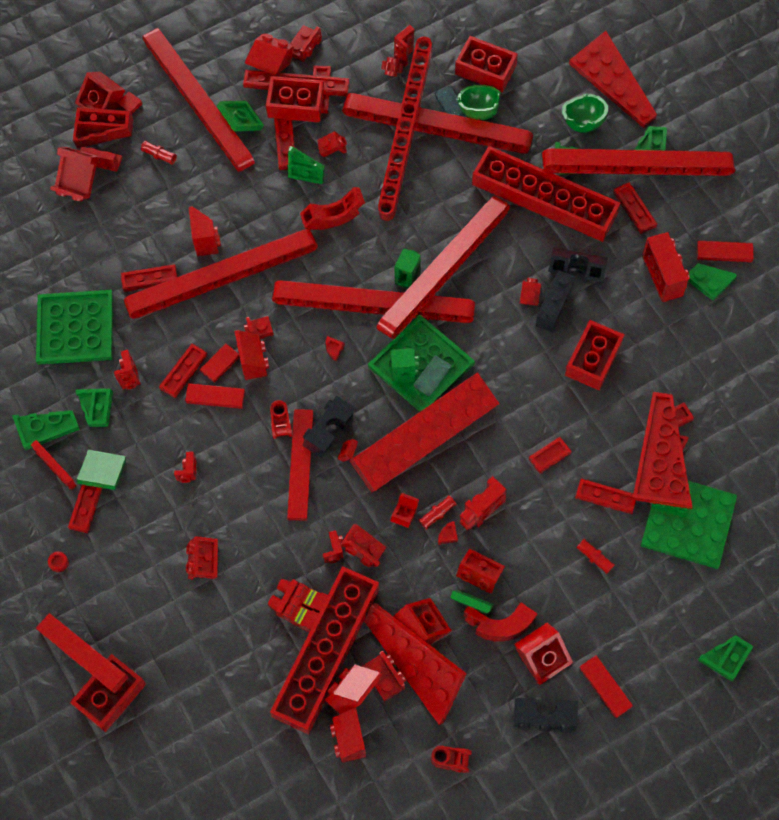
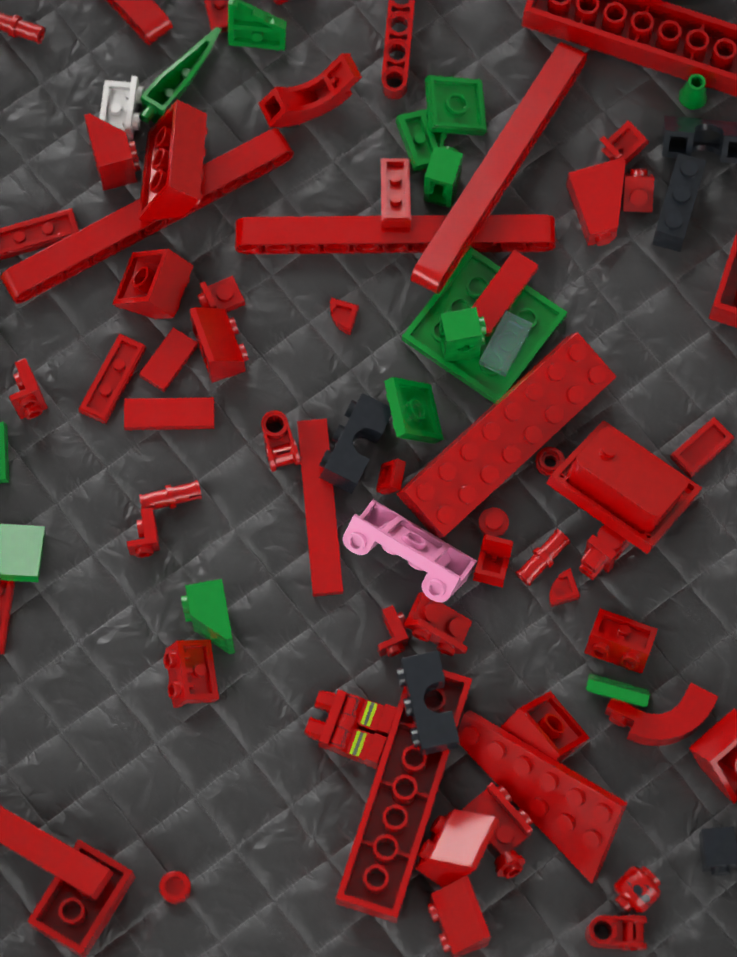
camera: 10 degrees left, 5 degrees up
(170, 693) = (175, 887): none -> red tile
(207, 446) = (171, 496): none -> red pin
(215, 206) = (121, 104): none -> white bracket
(218, 315) = (153, 283): none -> red slope
(219, 521) = (208, 611): none -> green slope
(241, 242) = (173, 163): none -> red slope
(248, 196) = (175, 80): none -> green piece
(348, 611) = (432, 730): none -> black arch
(367, 410) = (413, 410): none -> green plate
(371, 508) = (445, 565): none -> bright pink piece
(376, 276) = (395, 193): none -> tile
(387, 705) = (509, 864): none -> red plate
(399, 239) = (417, 138): none -> green wing
(409, 486) = (493, 522): none -> red plate
(423, 227) = (455, 105): none -> green tile
(435, 342) = (504, 289): none -> red tile
(451, 447) = (548, 453): none -> red plate
(467, 732) = (637, 889): none -> red head
(494, 472) = (624, 486): none -> red piece
(504, 294) = (597, 199): none -> red slope
(525, 262) = (624, 143): none -> red bracket
(574, 236) = (693, 93): none -> green cone

